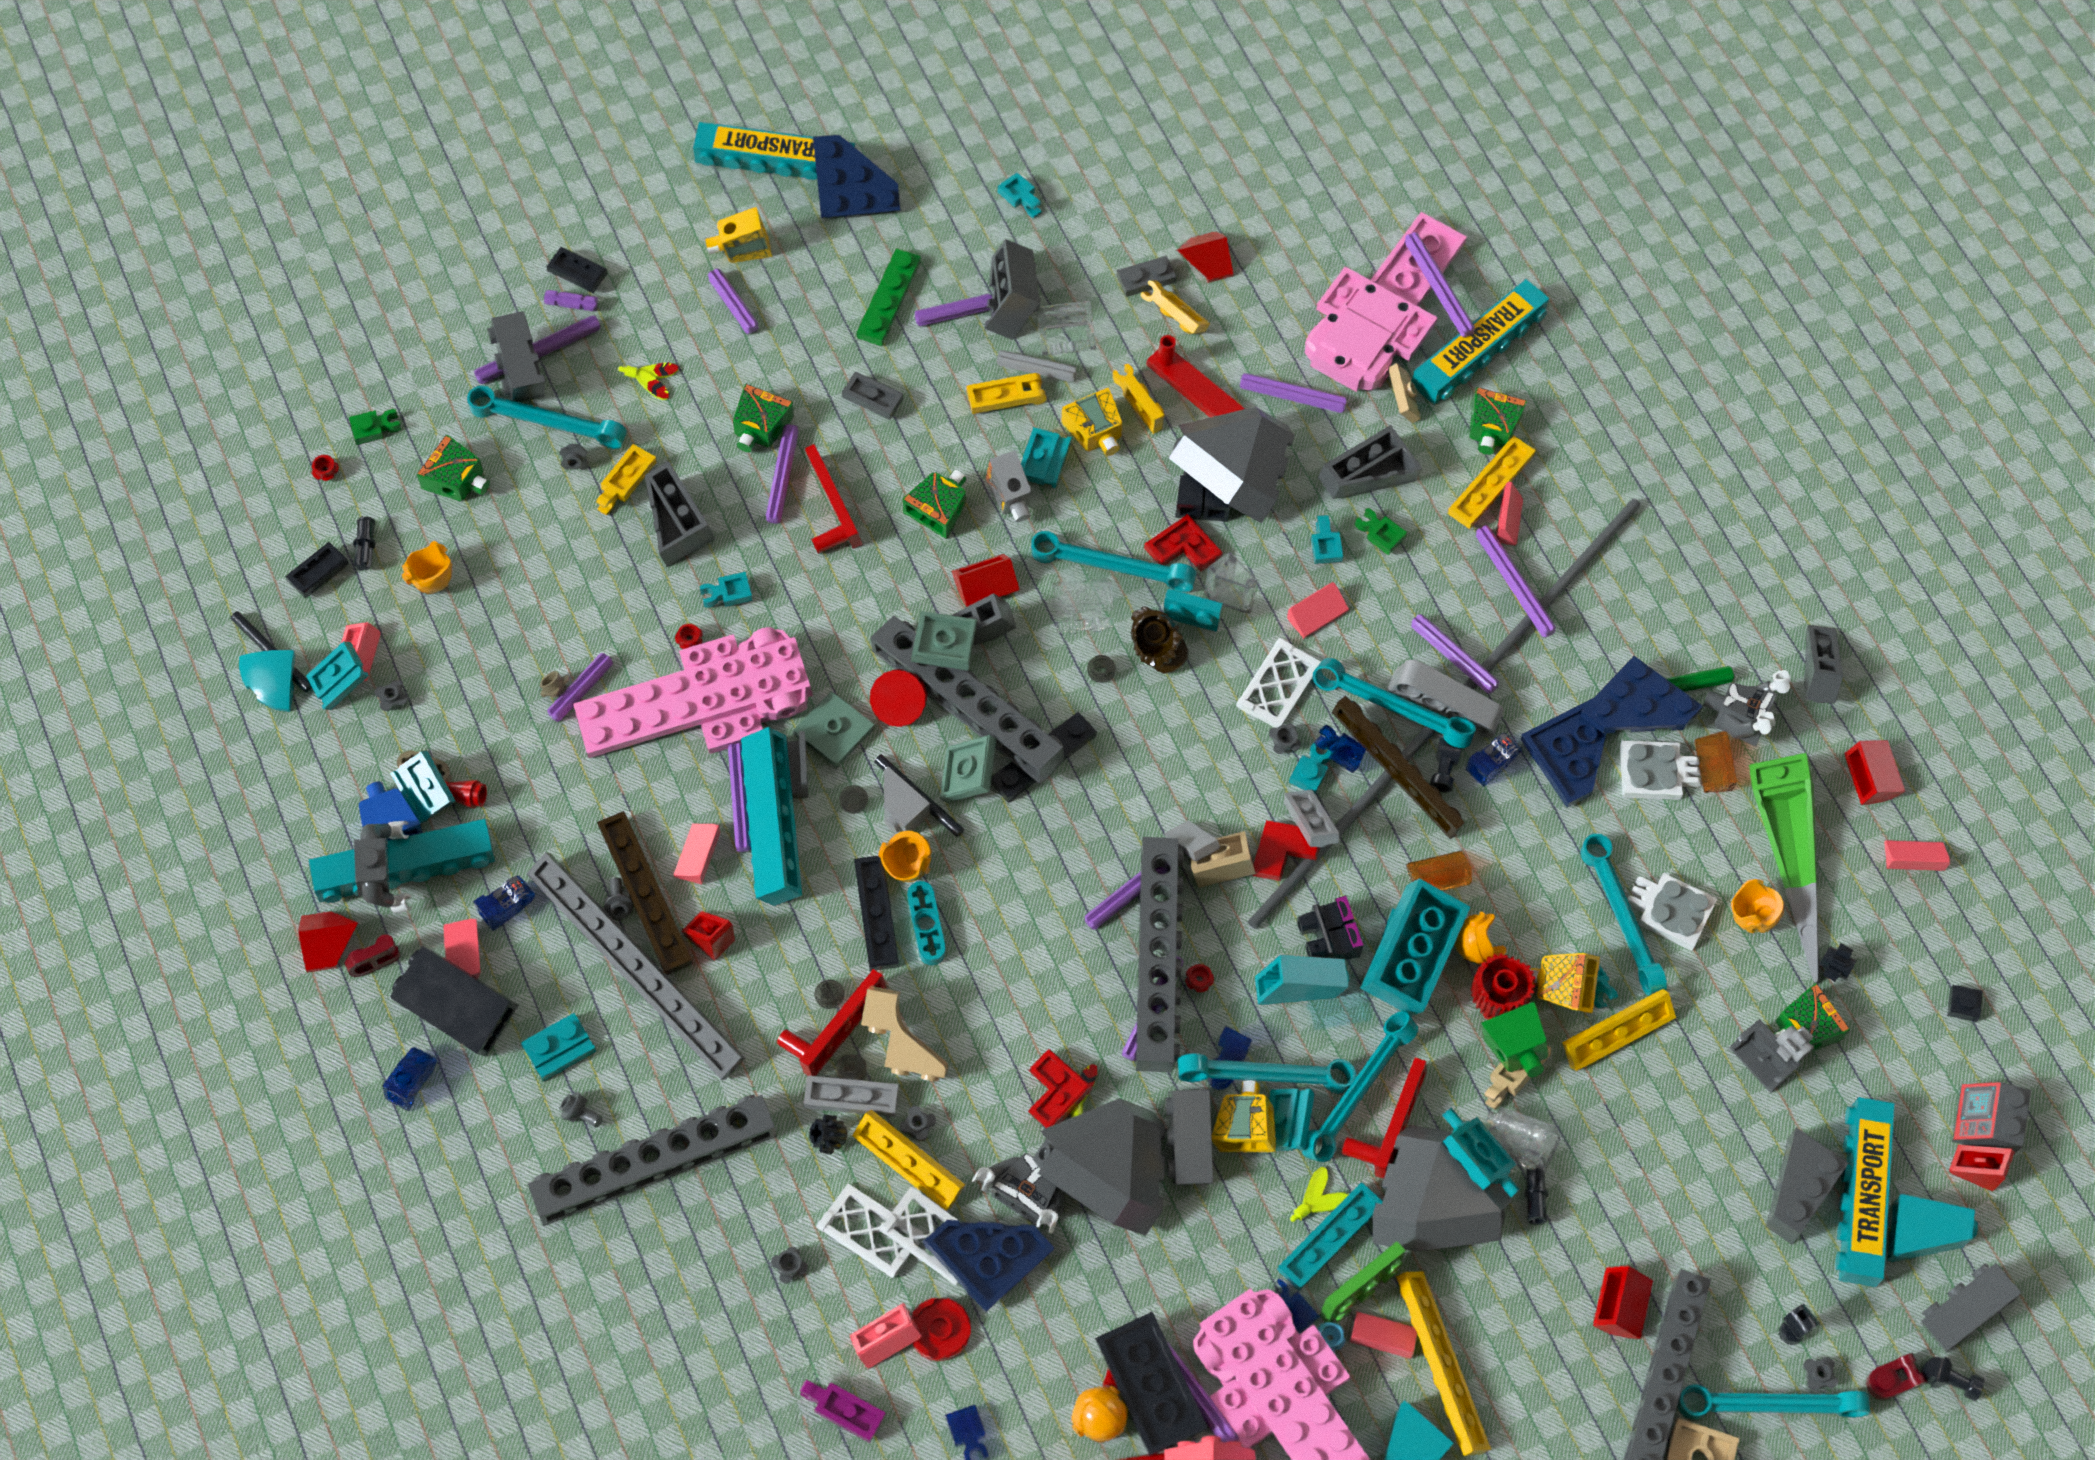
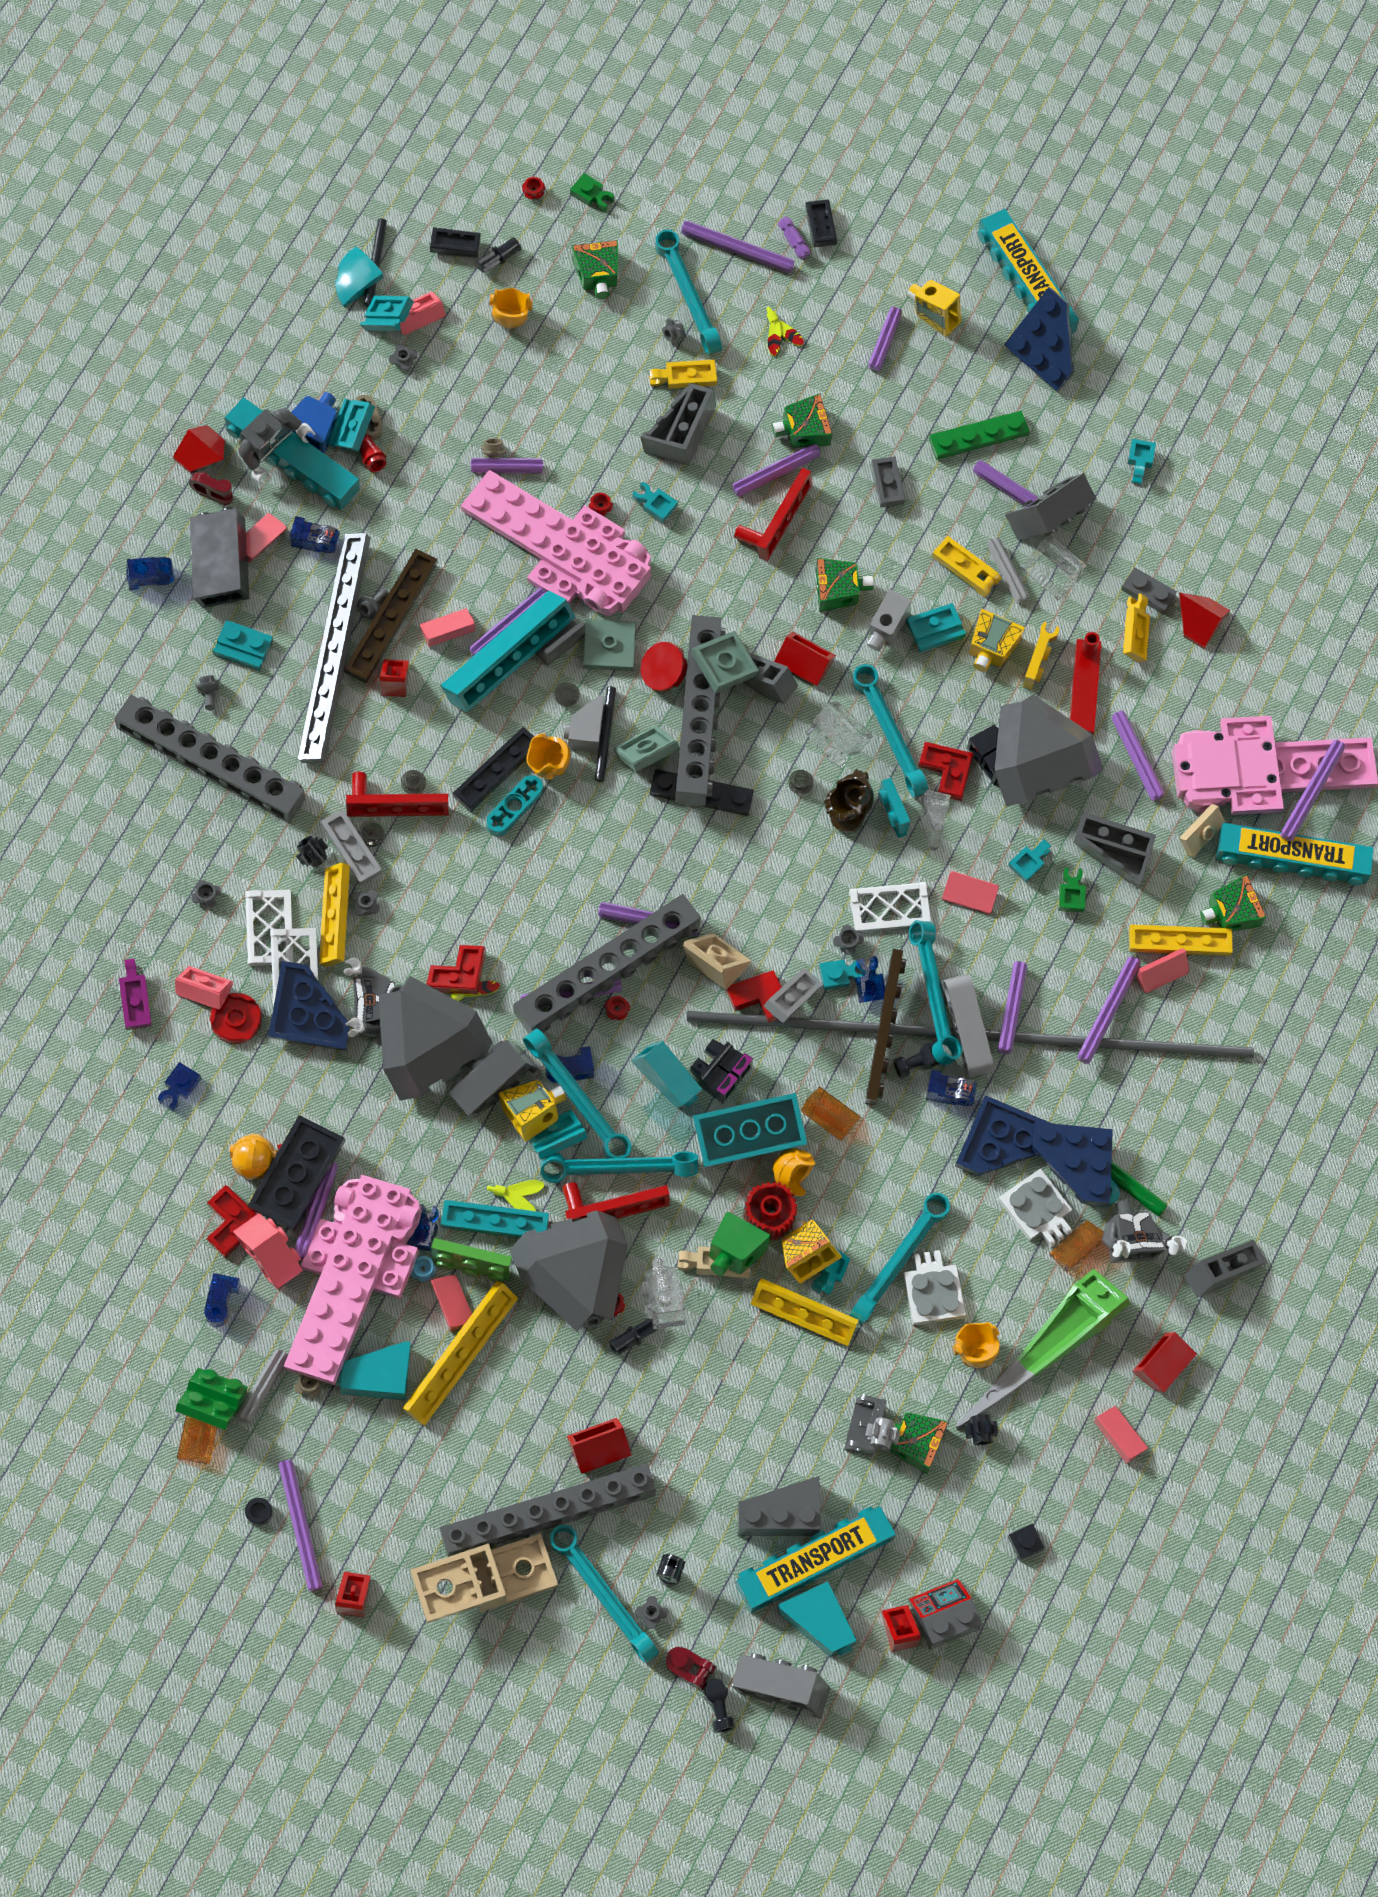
camera: 50 degrees right, 5 degrees up
(516, 357) = (713, 237): dark grey wedge -> none
(905, 1050) = (409, 855): tan arch -> none
(1193, 840) = (712, 930): light grey tile -> none
(1479, 1153) = (623, 1271): teal plate -> none

